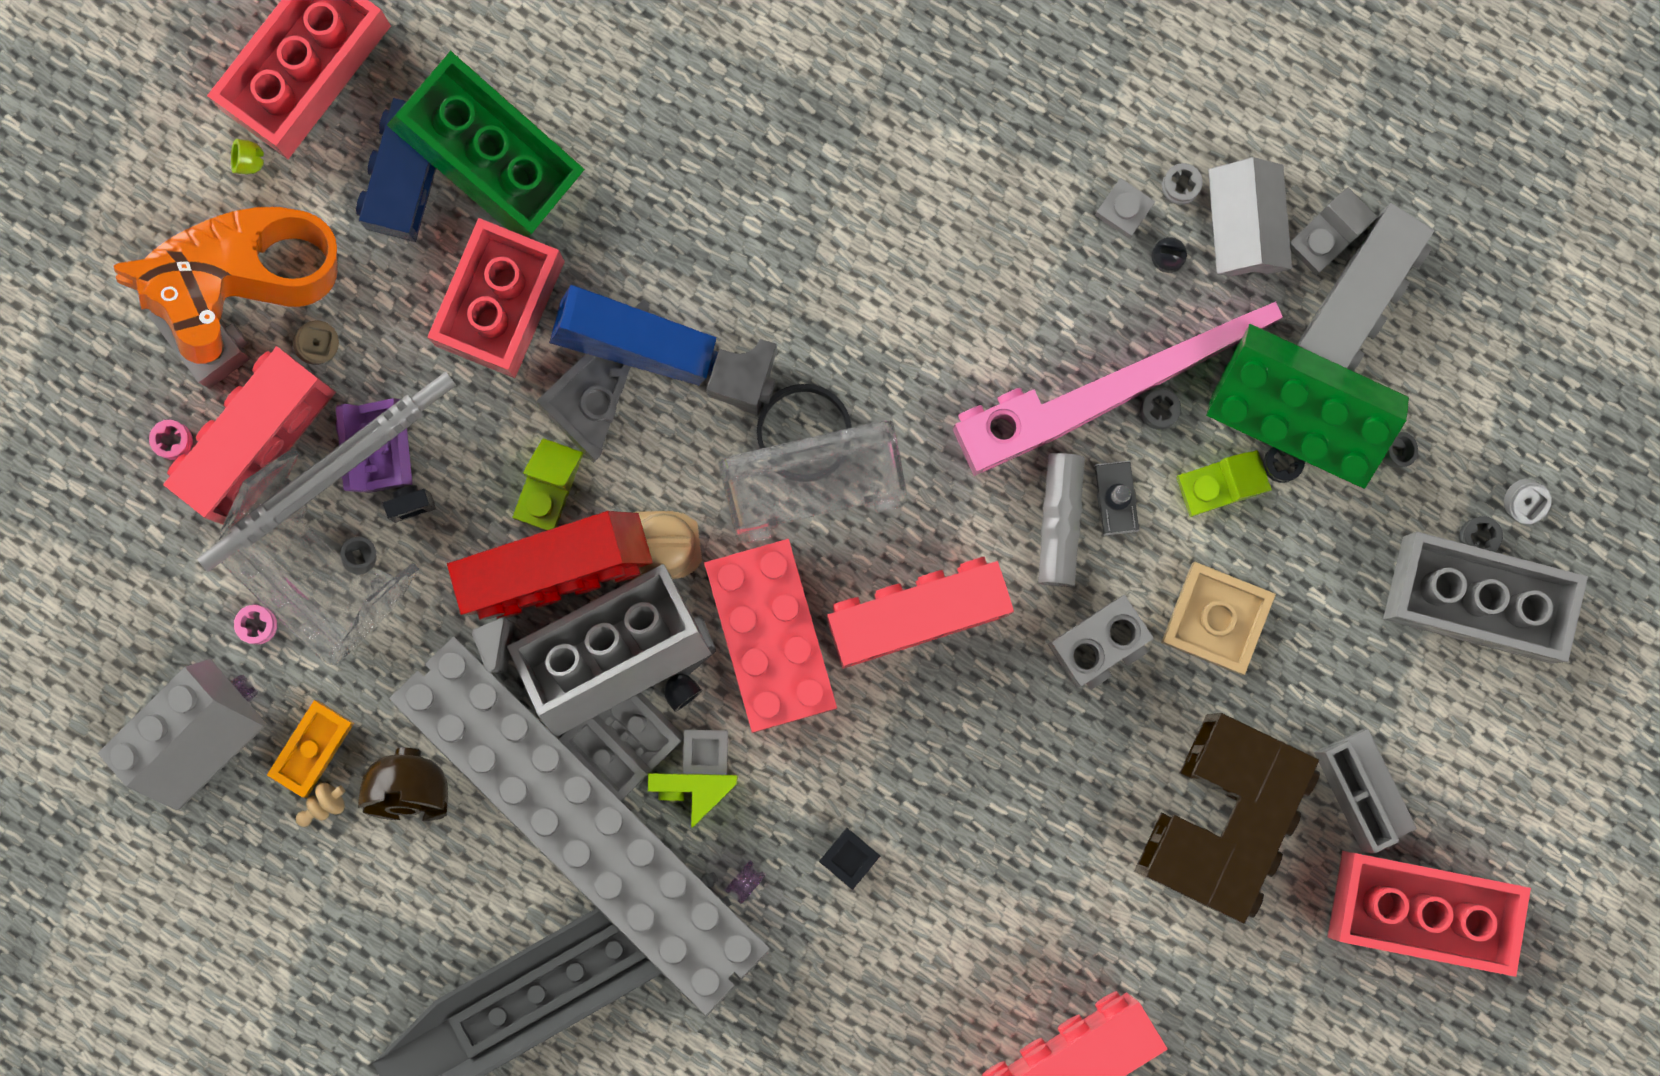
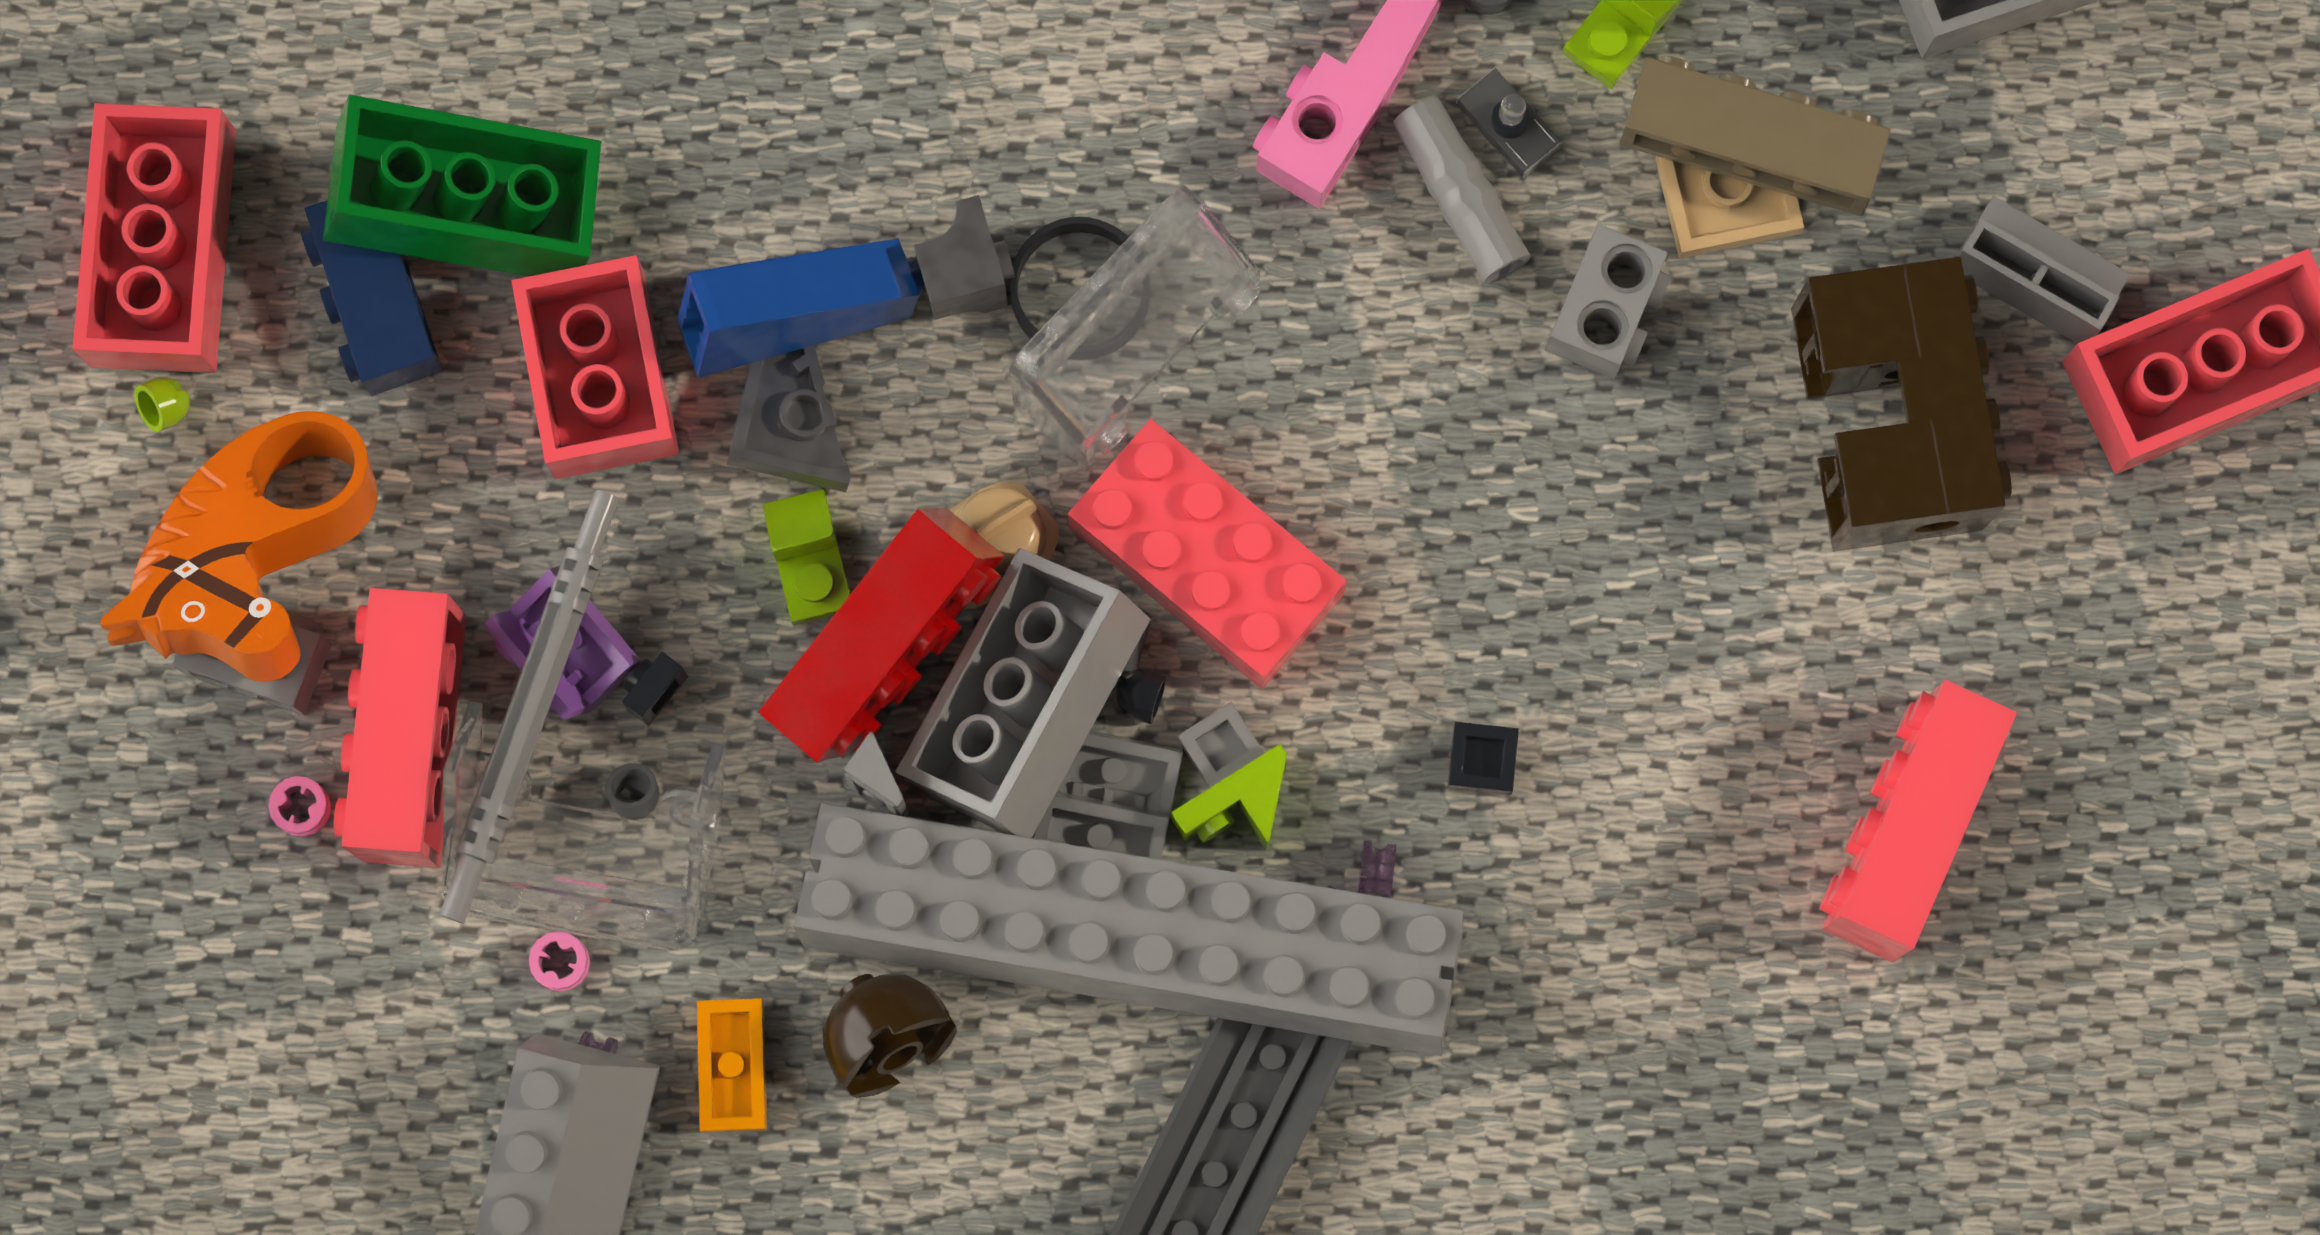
camera: 30 degrees left, 5 degrees down
(315, 342) = (403, 565): dark tan tile -> none
(327, 800) = (790, 1130): tan hair -> none
(919, 614) = (1368, 407): coral brick -> none
(1252, 604) = (1755, 134): none -> dark tan brick

